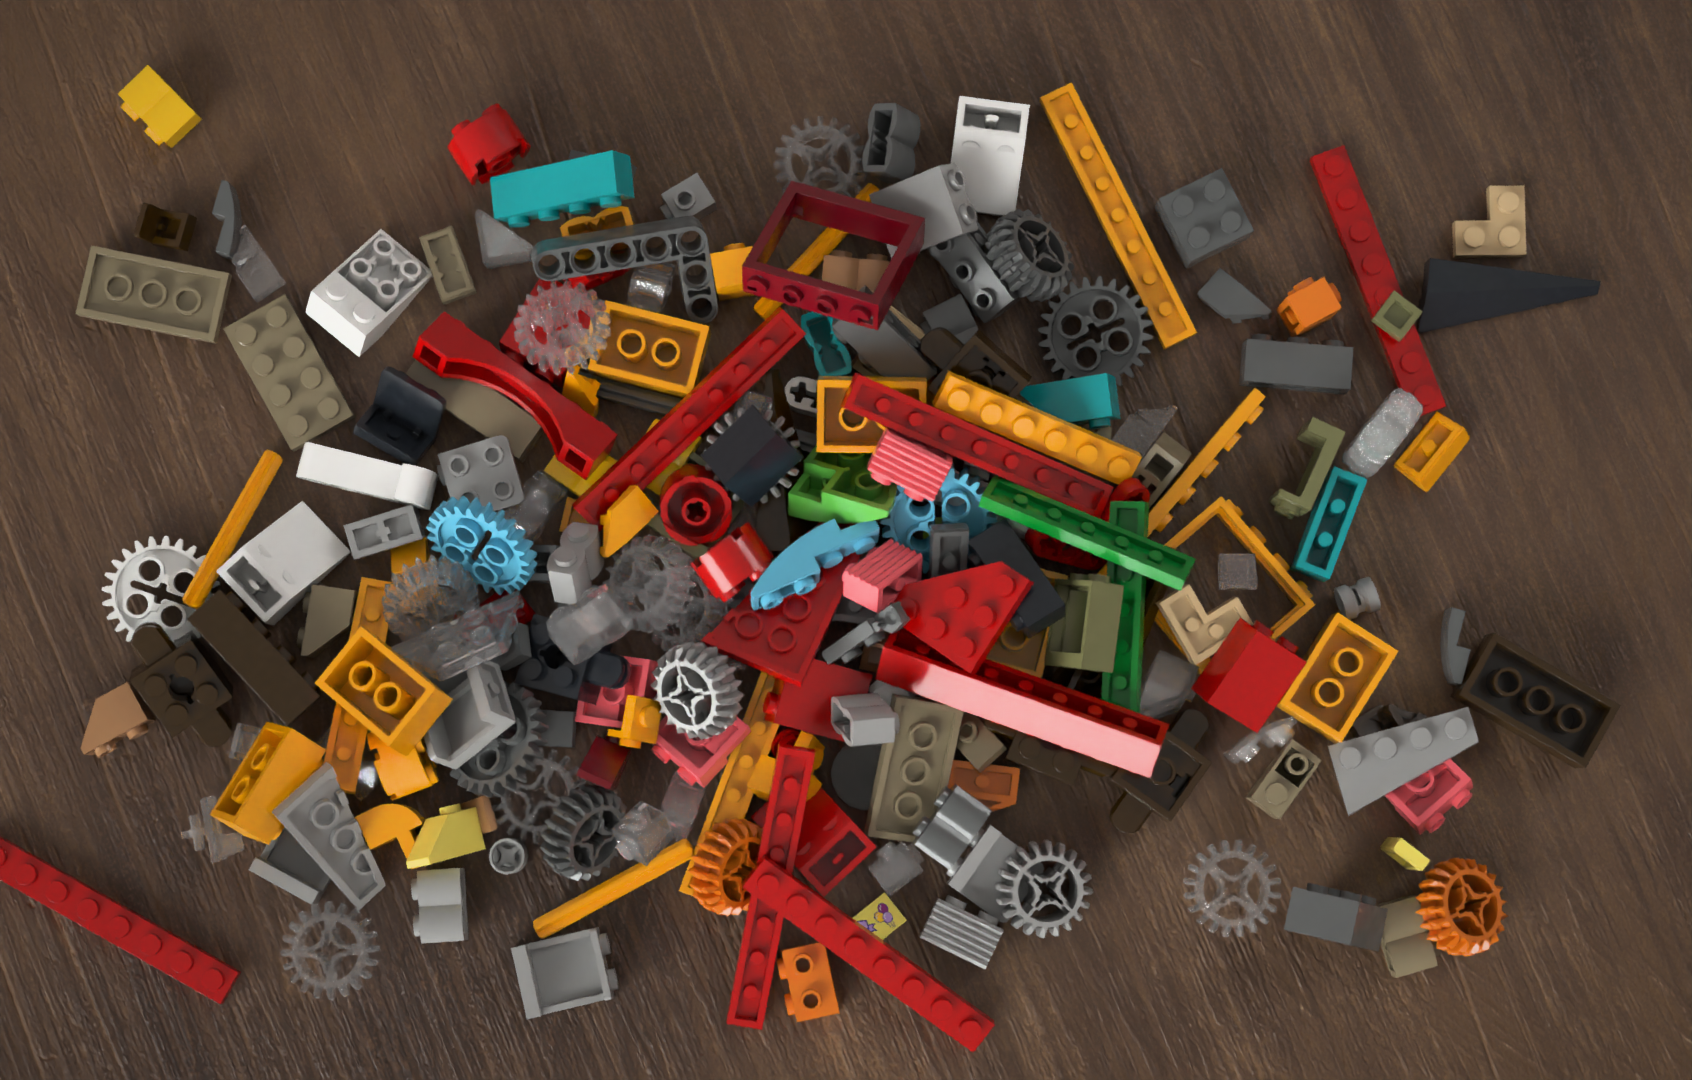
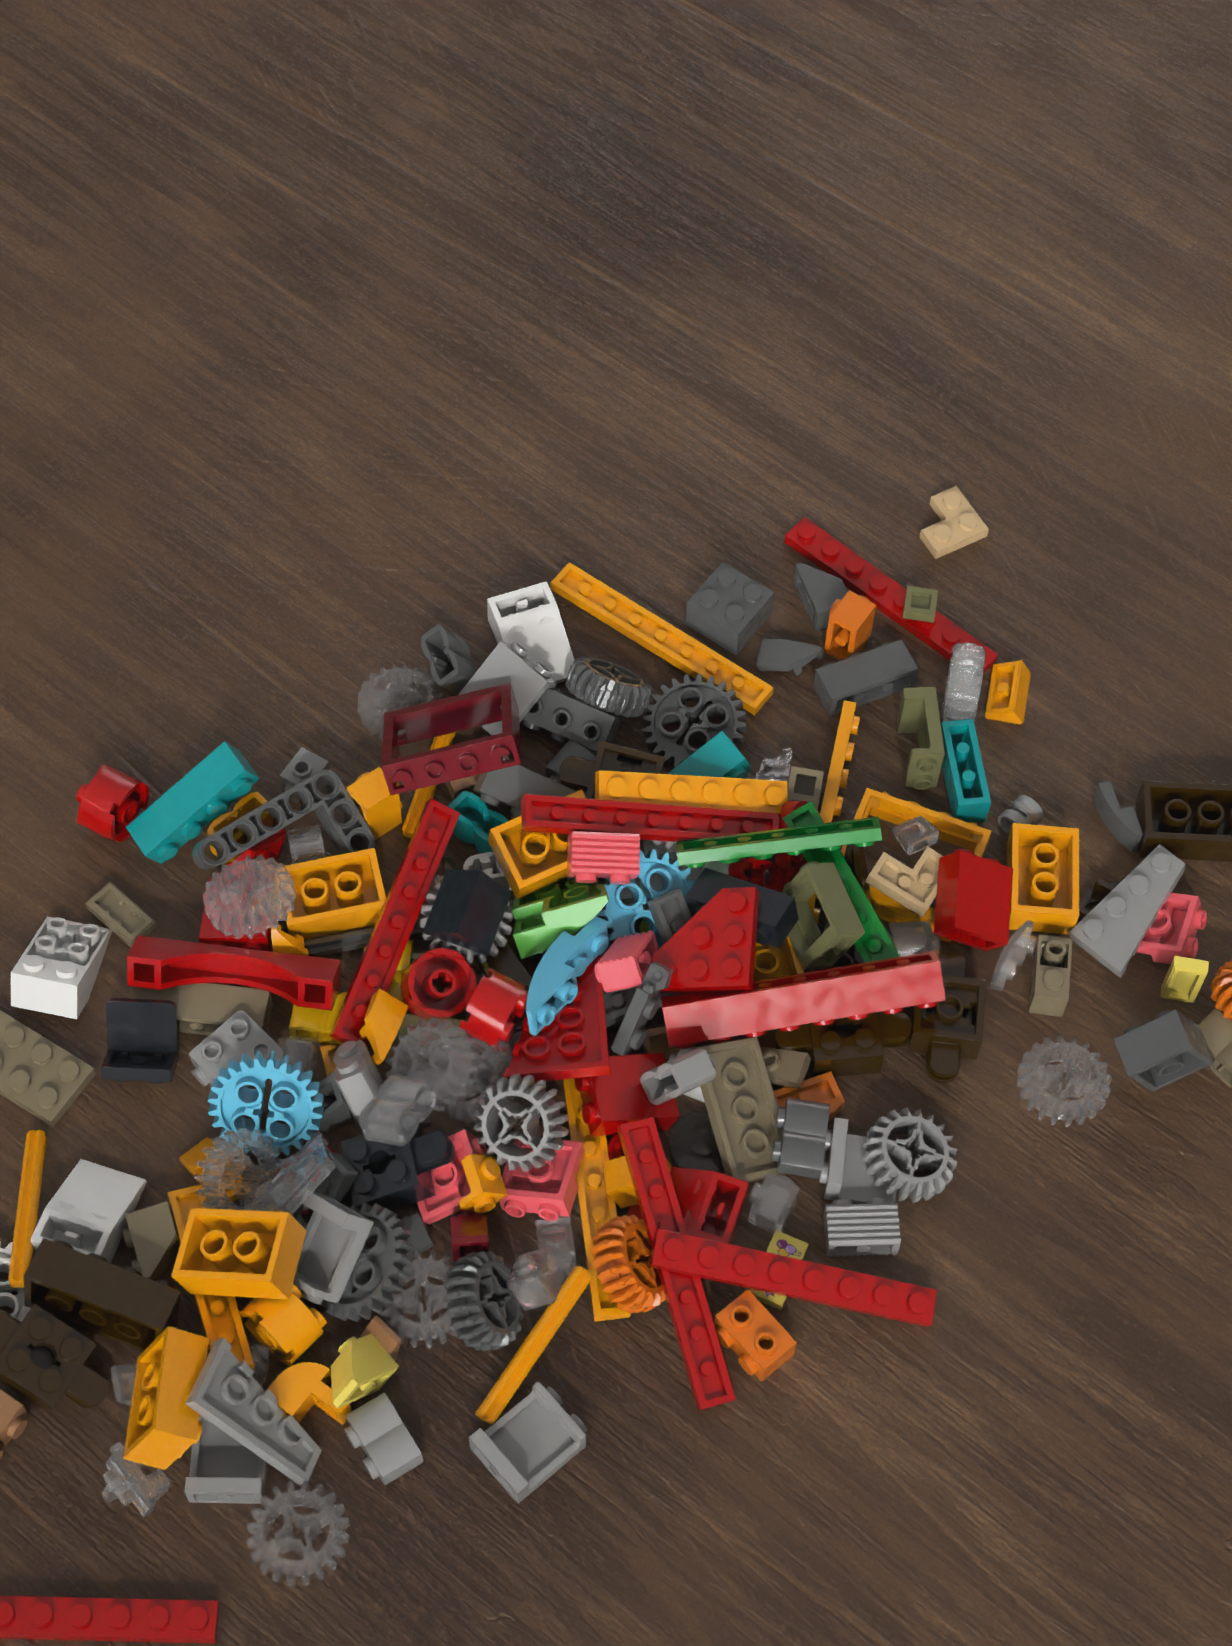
camera: 30 degrees left, 25 degrees down
(367, 475) = (134, 1108): white beam -> none
(384, 531) = (168, 1142): light grey hinge -> none
(499, 244) = (162, 876): clear slope -> none
(503, 856) = (424, 1356): light grey wheel -> none
(1307, 250) = (817, 593): none -> dark grey slope
(1473, 292) = (976, 565): black wedge -> none

